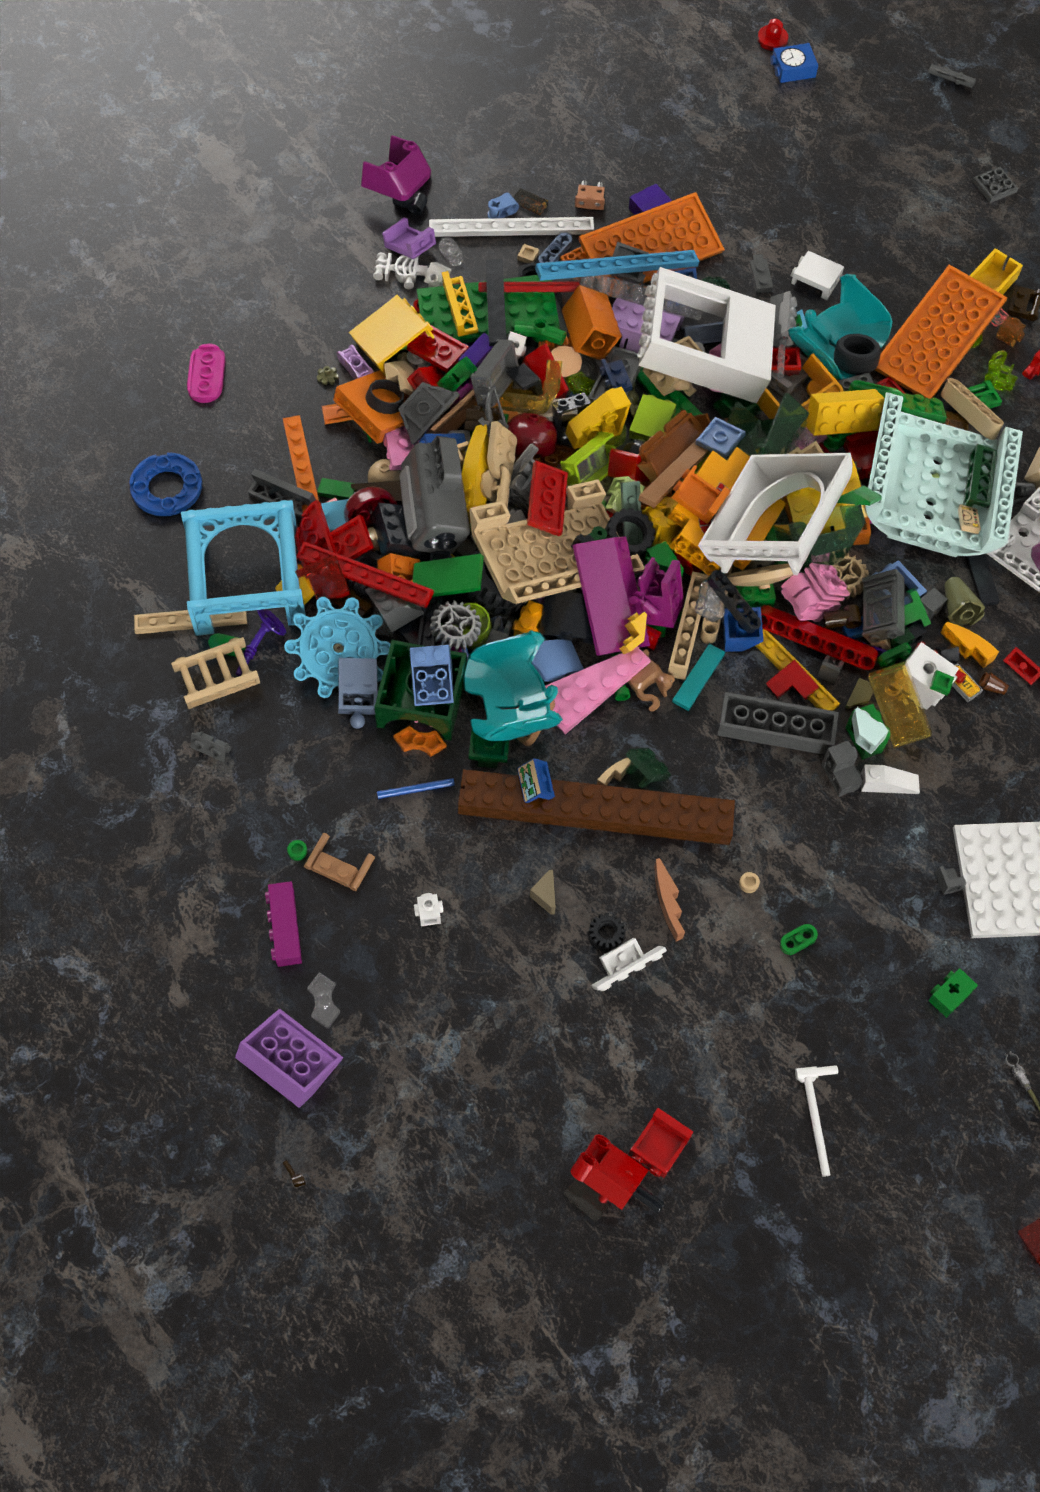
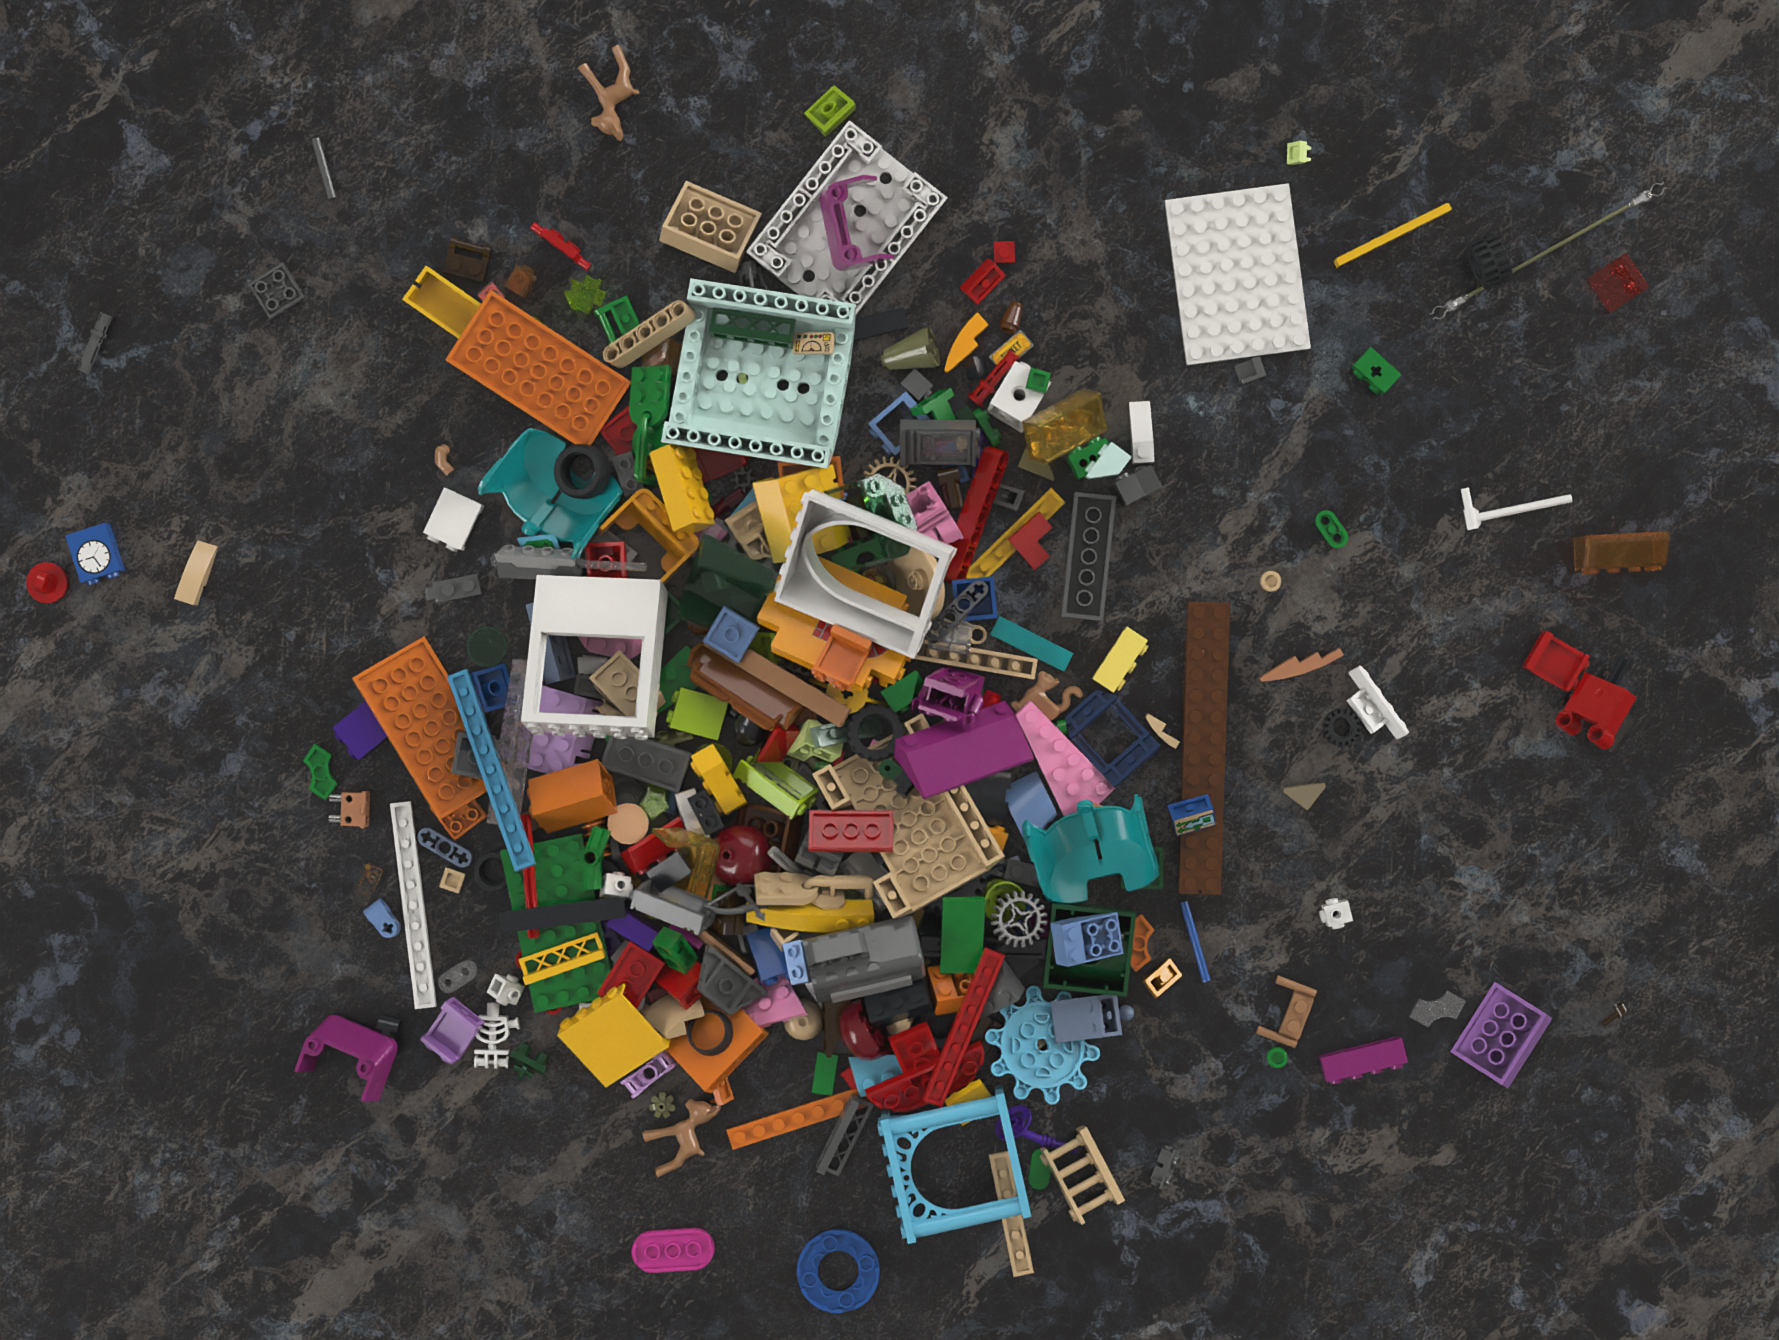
camera: 90 degrees left, 25 degrees up
(298, 385) = (700, 1113): none -> medium nougat animal
(325, 577) = (970, 1070): clear red bracket -> none
(373, 293) = (536, 1065): none -> dark green hips
(385, 752) = (1161, 978): none -> slope
(591, 743) = (1128, 760): none -> dark blue wedge
(615, 375) = (650, 761): dark blue bracket -> none
(627, 180) = (319, 763): none -> green tile
(636, 627) = (998, 719): yellow slope -> none
(645, 761) = (1152, 695): clear green plate -> none
(681, 744) = (1120, 660): none -> light yellow brick
(775, 1214) = (1621, 551): none -> clear orange windscreen
(777, 117) = (196, 573): none -> tan slope
(861, 495) = (831, 476): green slope -> none
(870, 272) = (440, 459): none -> medium nougat arm

